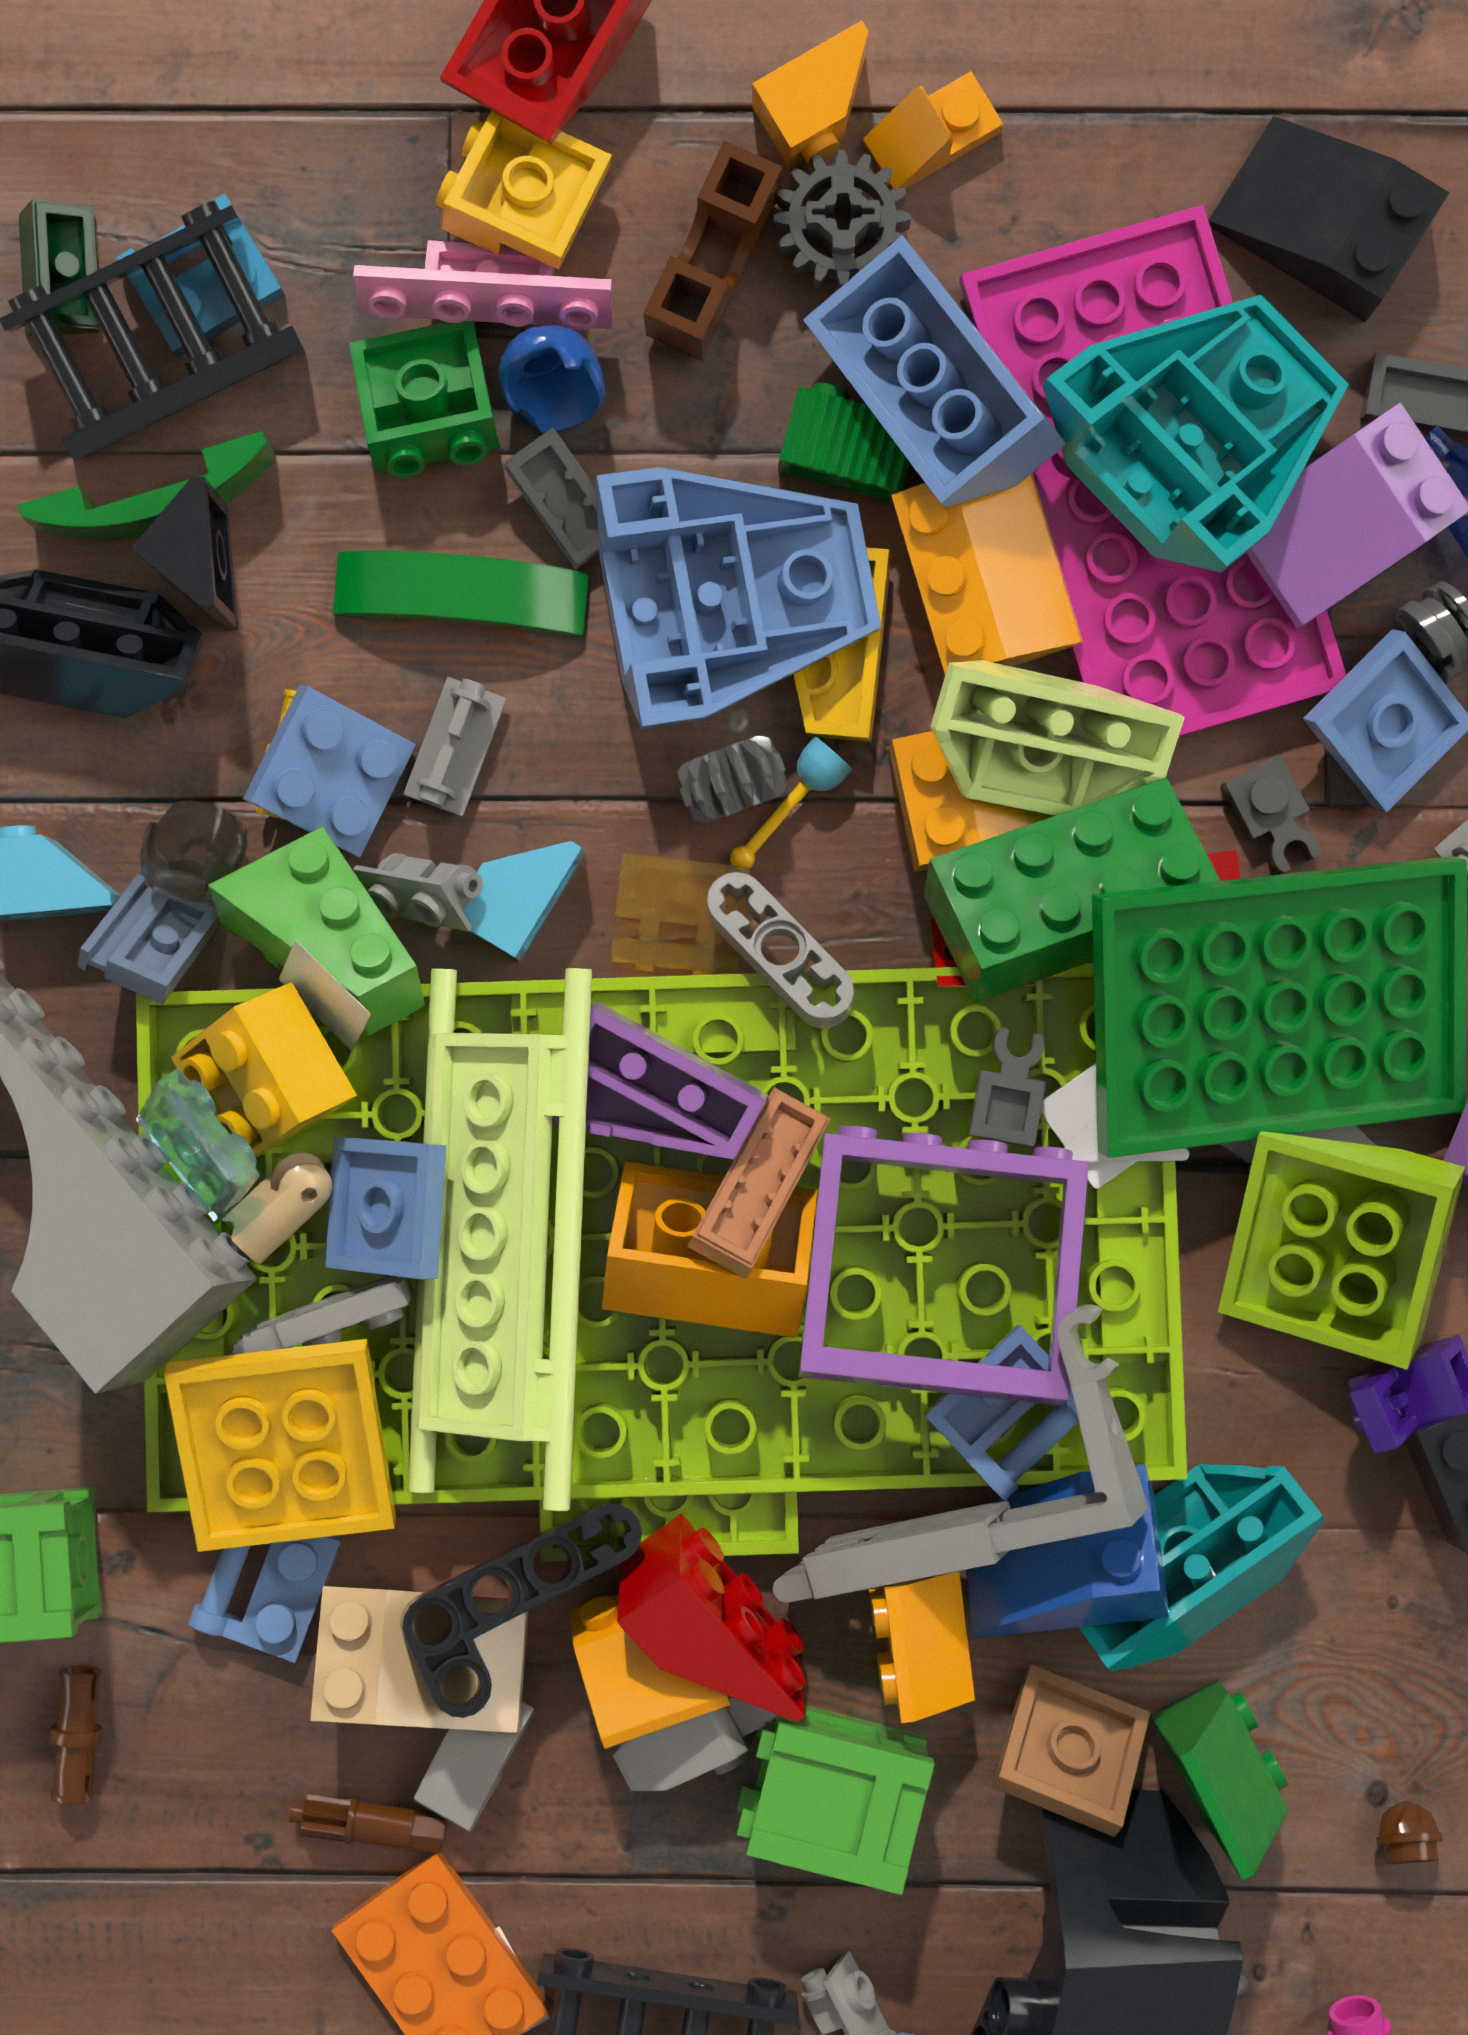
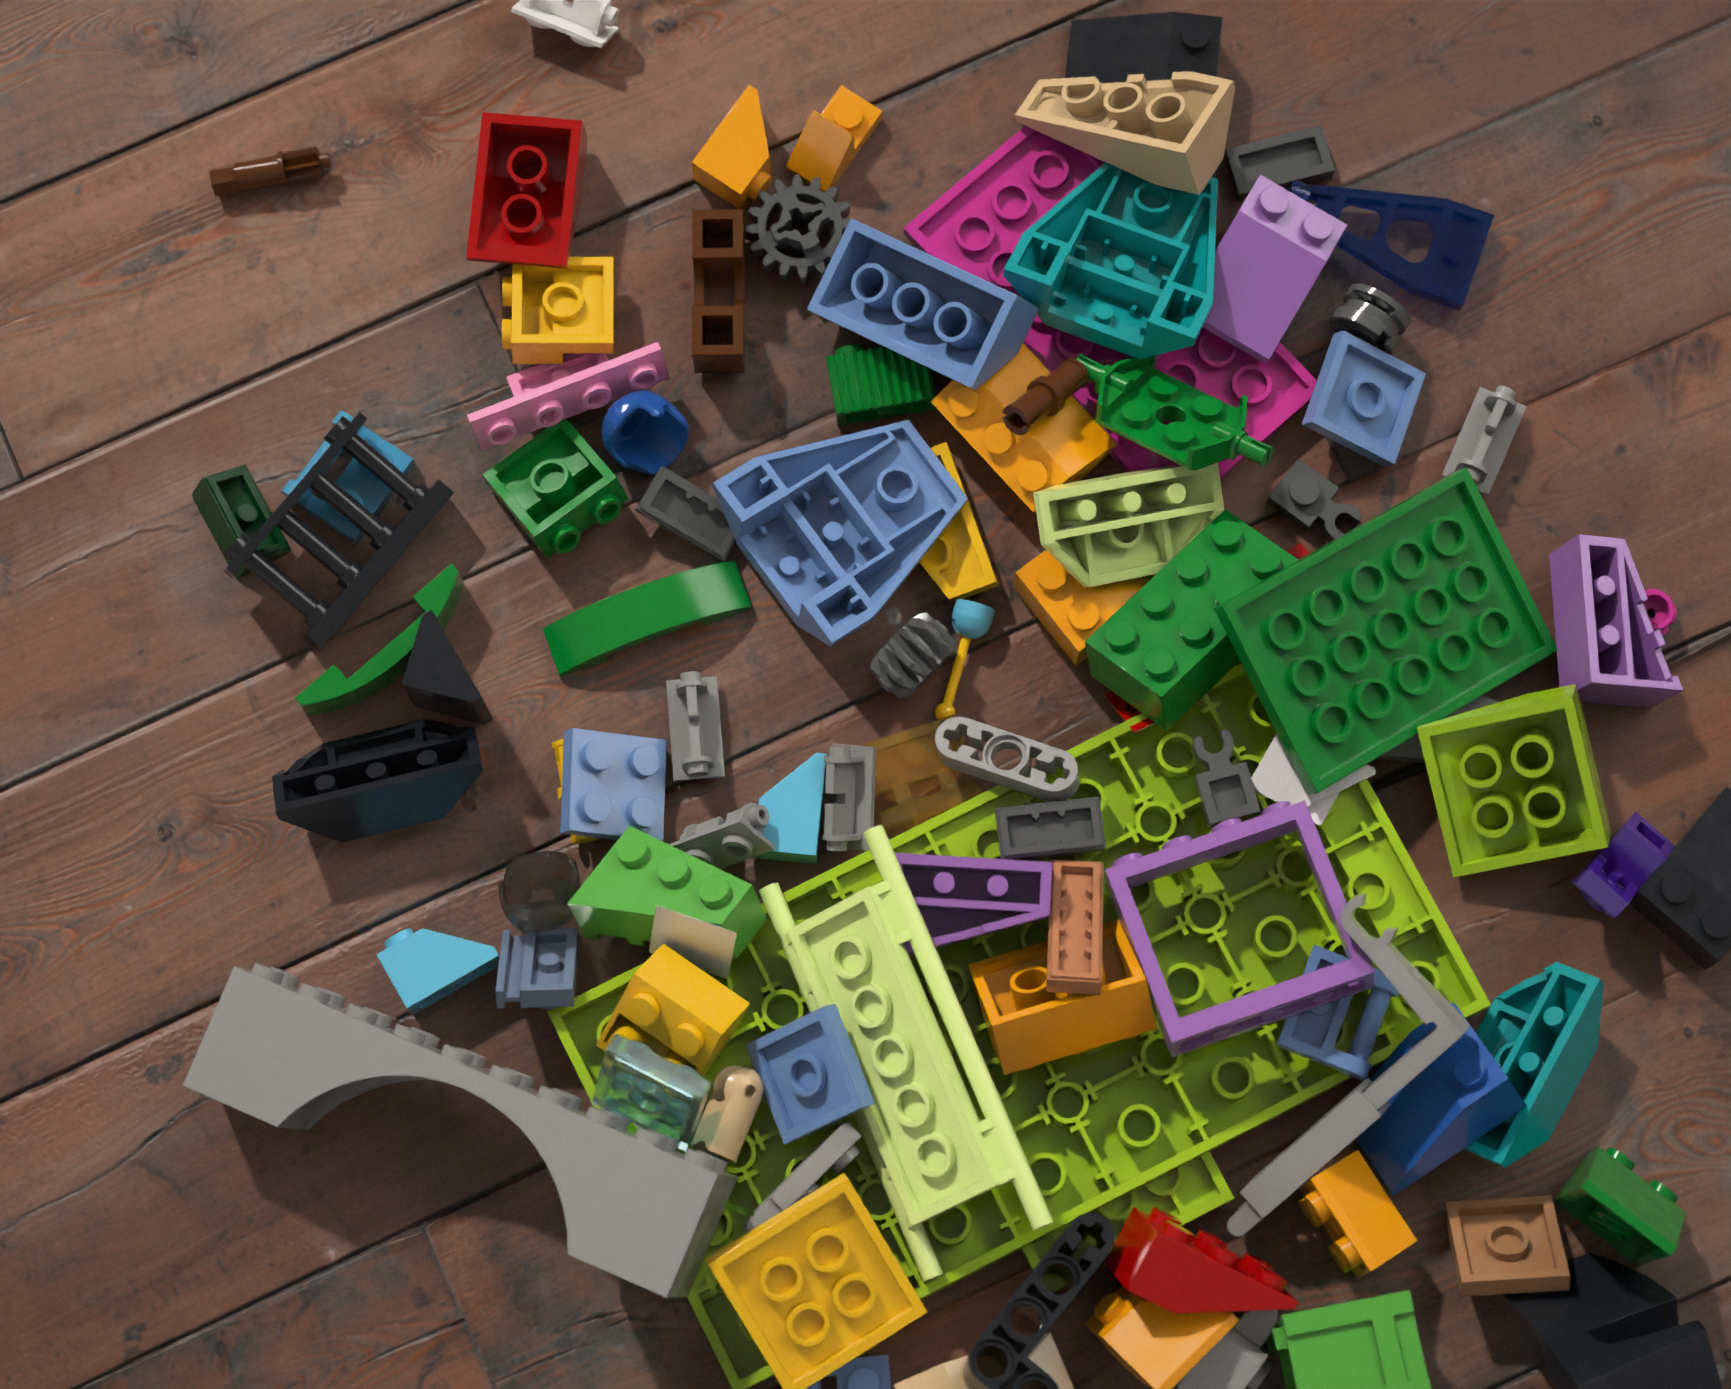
camera: 25 degrees left, 10 degrees down
(593, 898) = (852, 791): none -> light grey hinge
(788, 1053) = (1050, 829): none -> dark grey plate
(1023, 551) = (1045, 396): none -> reddish brown pin
(1135, 600) = (1202, 430): none -> green plate
(1299, 288) = (1153, 129): none -> tan wedge

